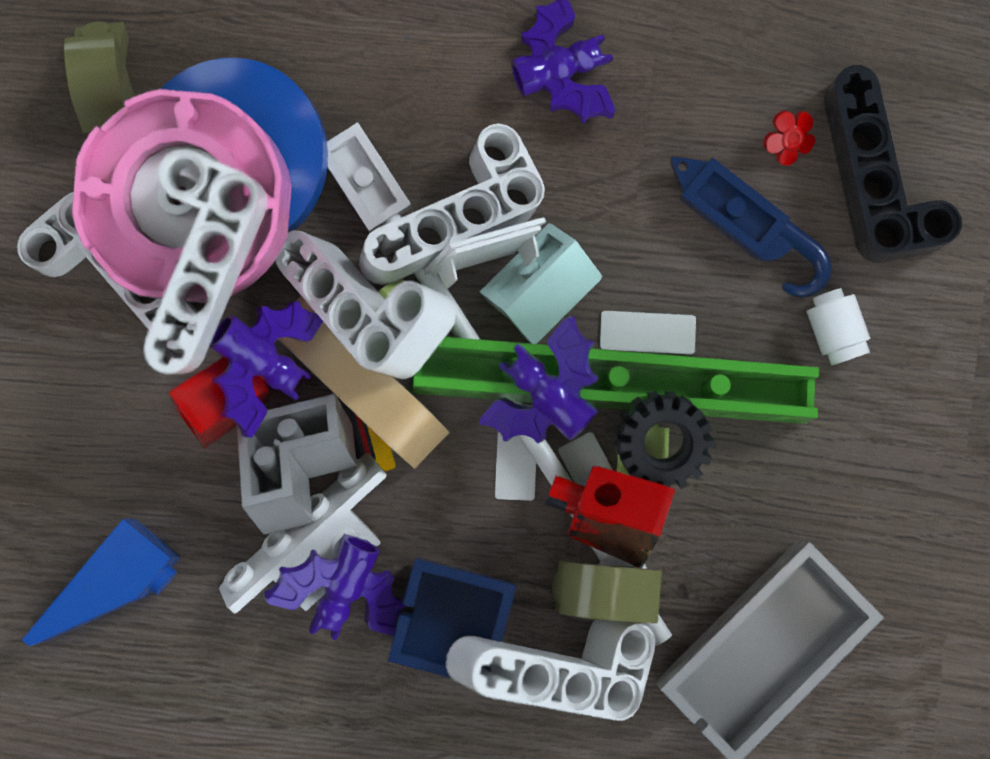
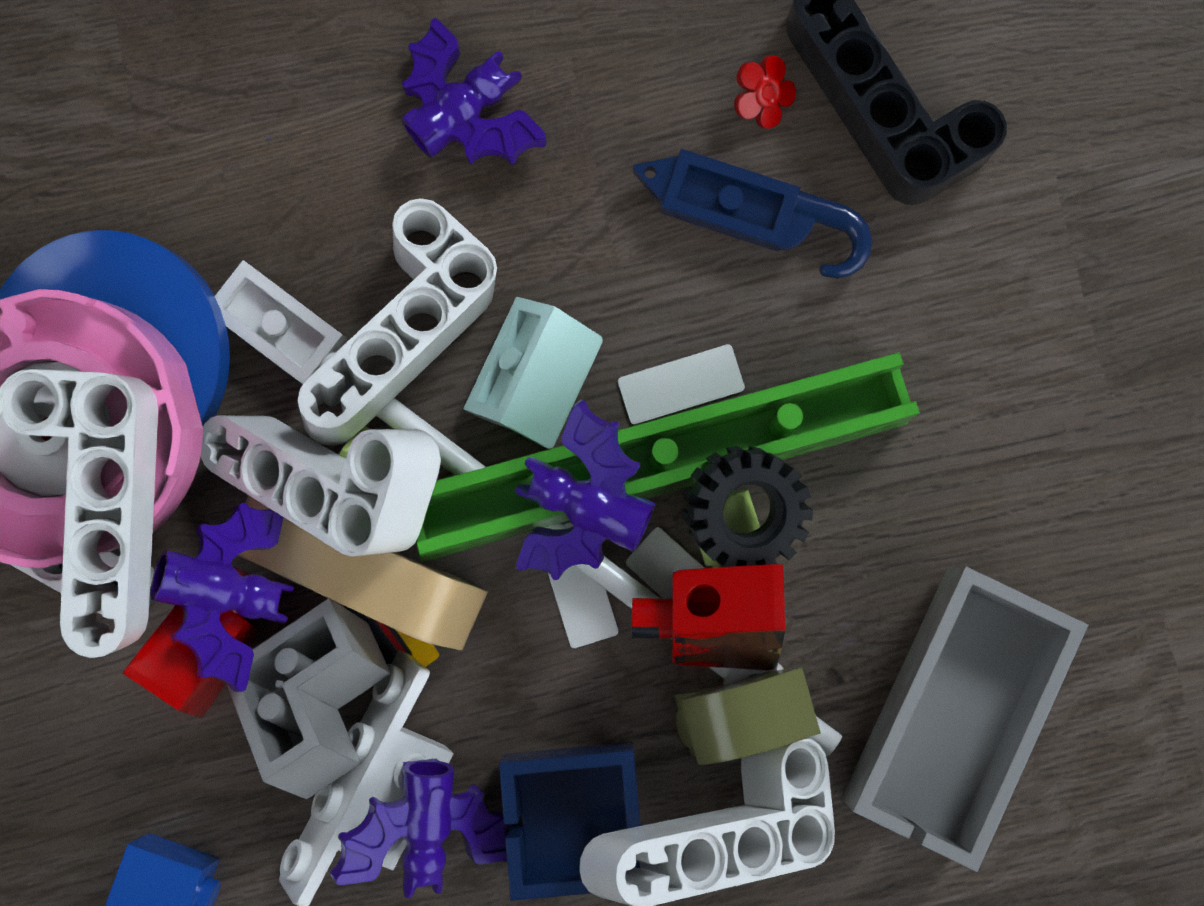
camera: 15 degrees left, 0 degrees up
(486, 248) = (449, 355): white piece -> none
(839, 326) = (904, 295): white brick -> none

